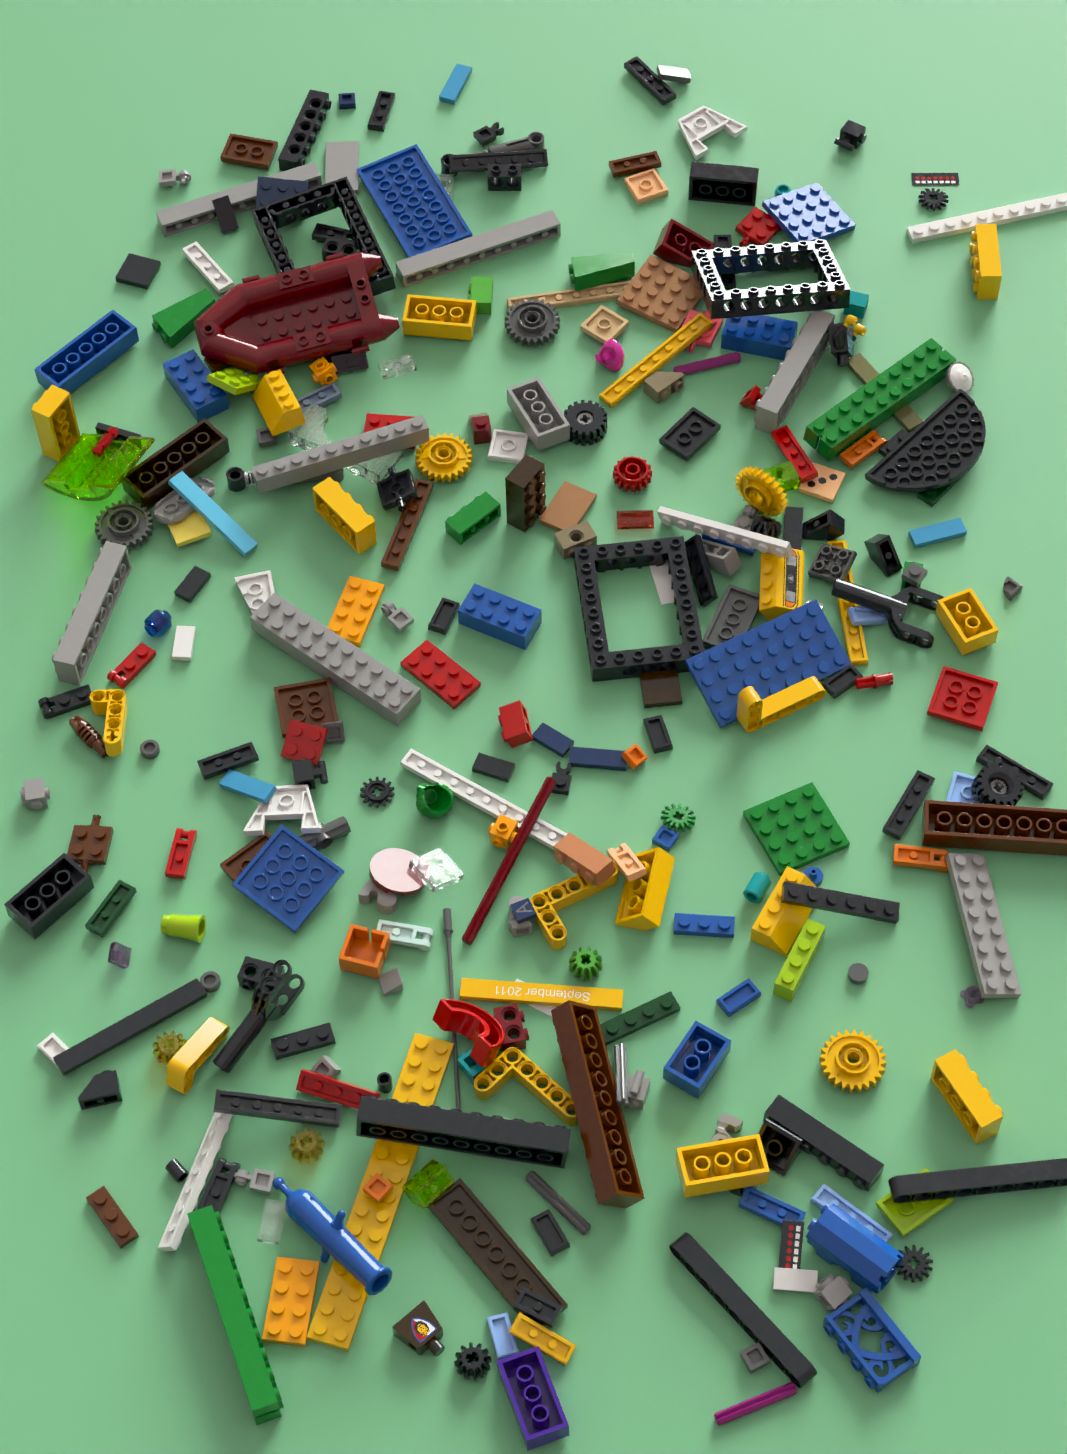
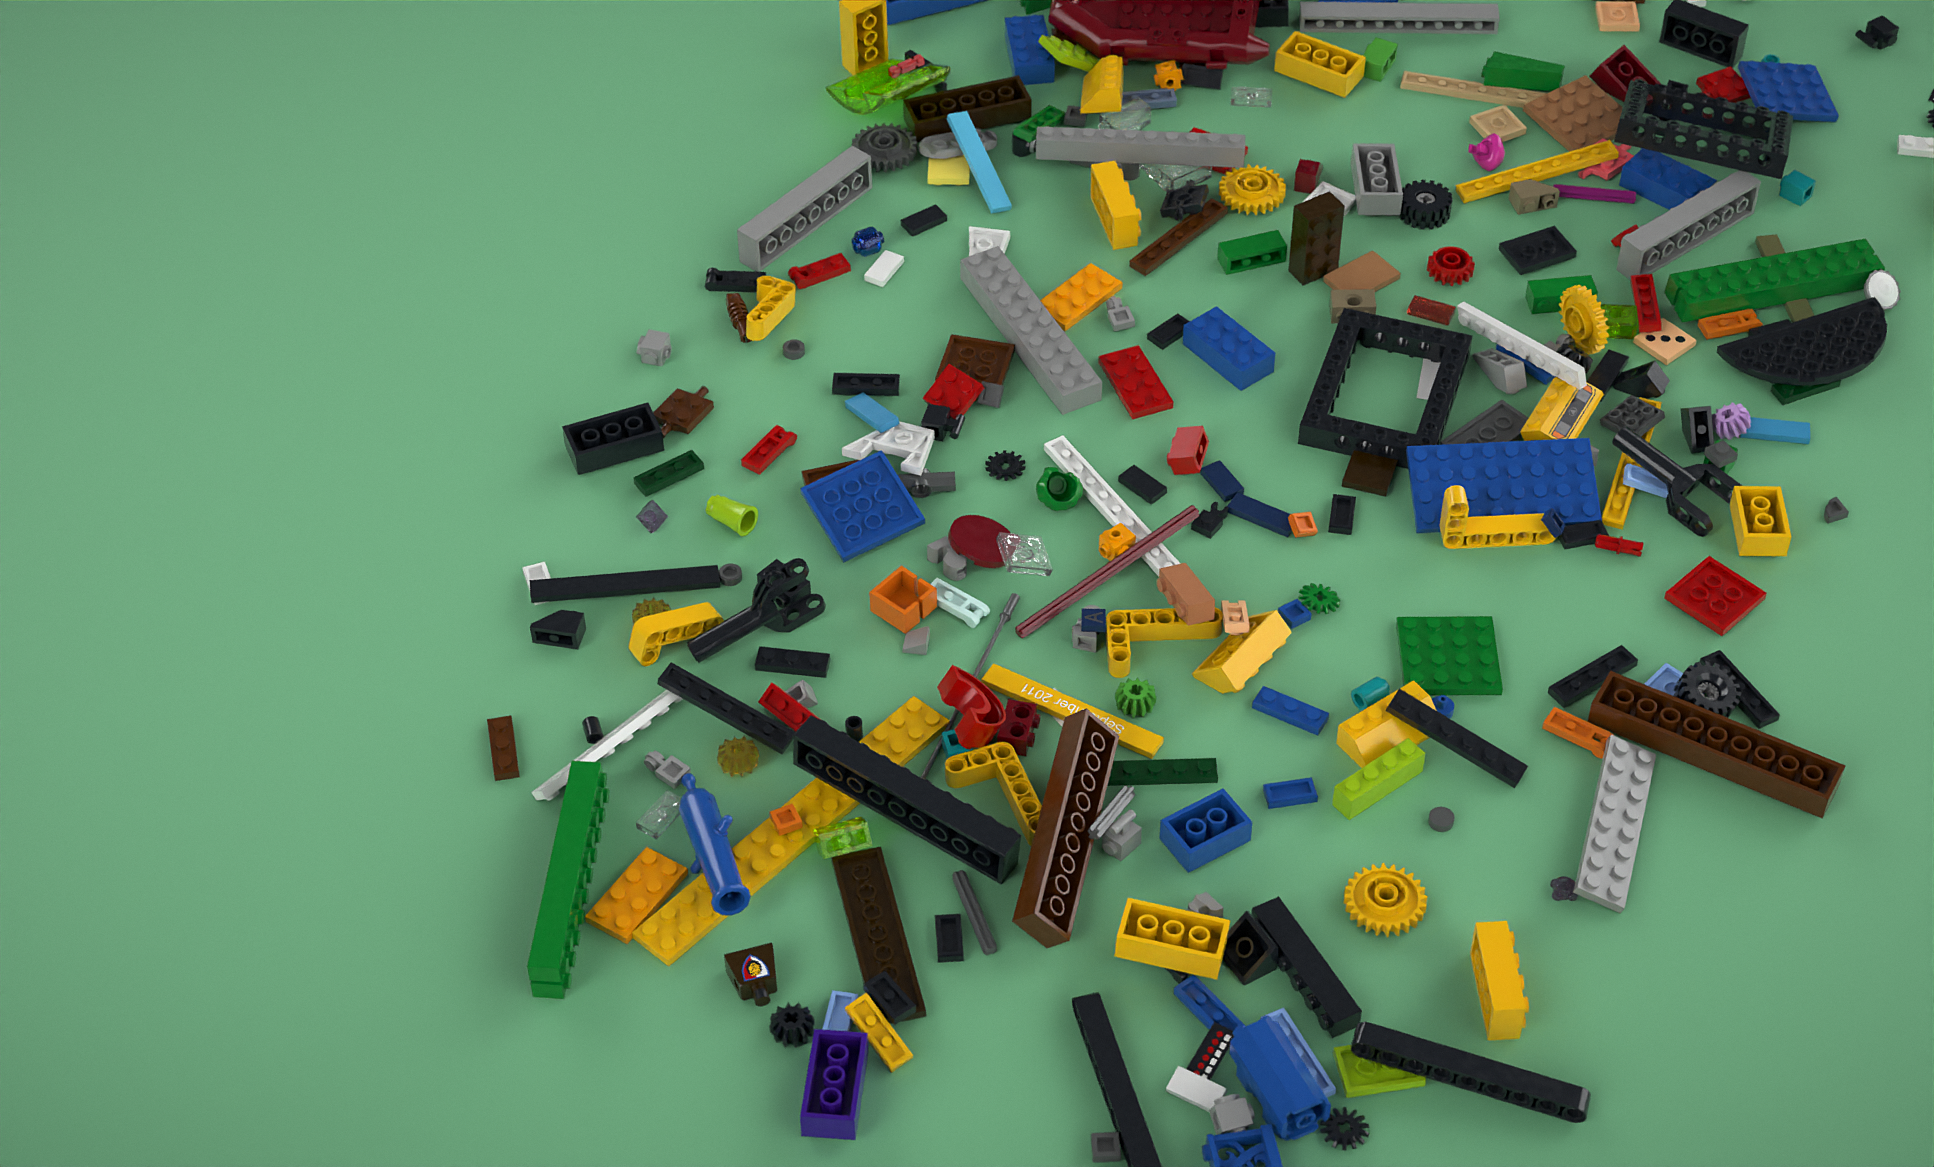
camera: 25 degrees right, 10 degrees down
(219, 1185) = (627, 759): black plate -> none
(243, 457) = (1048, 117): none -> green tile
(532, 322) = (1419, 98): dark grey gear -> none
(700, 570) = (1476, 376): black tile -> none
(725, 469) = (1545, 294): none -> green brick
(821, 683) = (1553, 522): none -> dark blue tile
(843, 337) = (1761, 211): black torso -> none
(906, 539) = (1731, 421): none -> lavender gear

